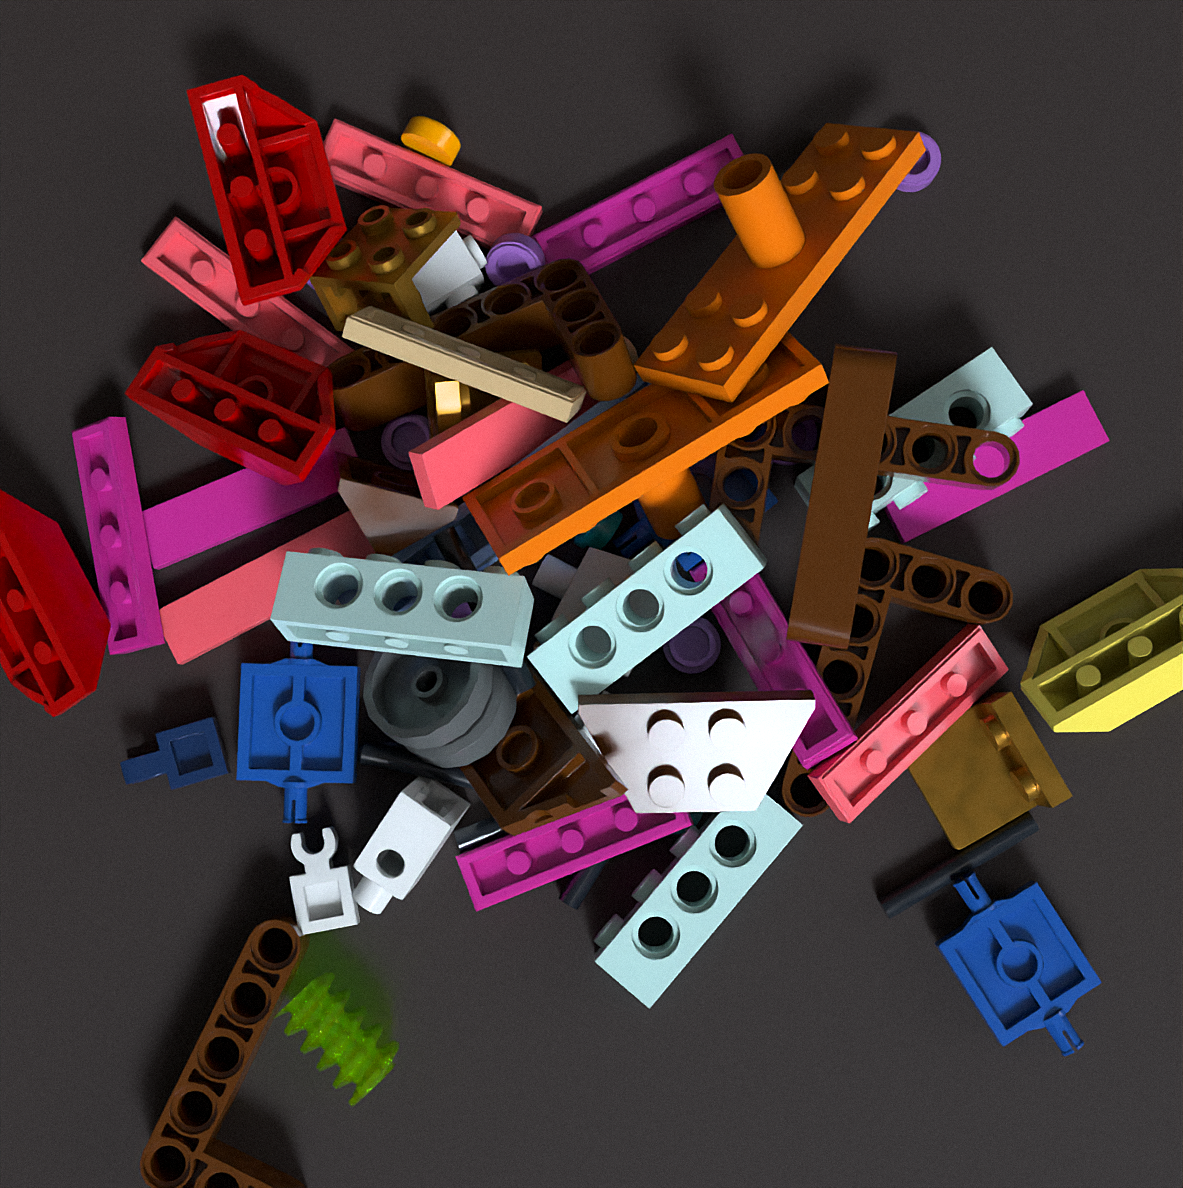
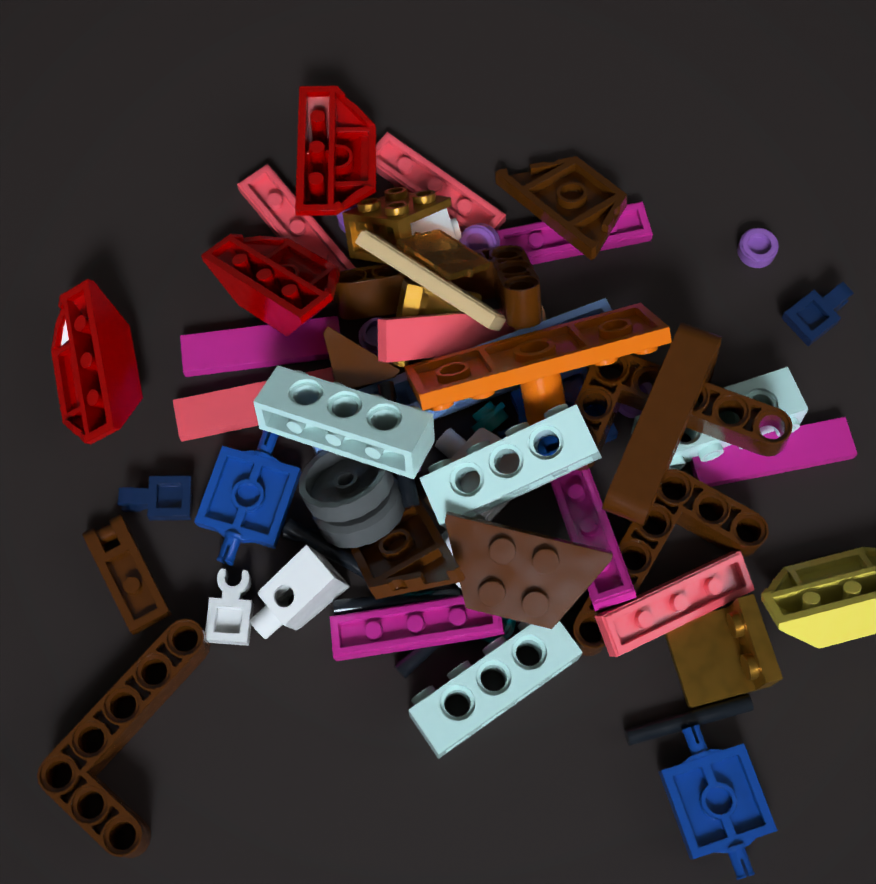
camera: 10 degrees right, 15 degrees down
(118, 535) = (166, 346): dark pink tile -> none
(168, 872) = (127, 575): none -> reddish brown plate
(340, 1036) = (208, 719): clear neon green piece -> none
(431, 140) = (446, 157): light orange tile -> none
(471, 315) = (443, 254): none -> clear orange piece
(627, 164) = (569, 200): none -> reddish brown wing
(693, 647) = (534, 514): medium lavender plate -> none
(782, 254) = (661, 265): orange plate -> none
(1014, 247) = (817, 315): none -> dark blue plate

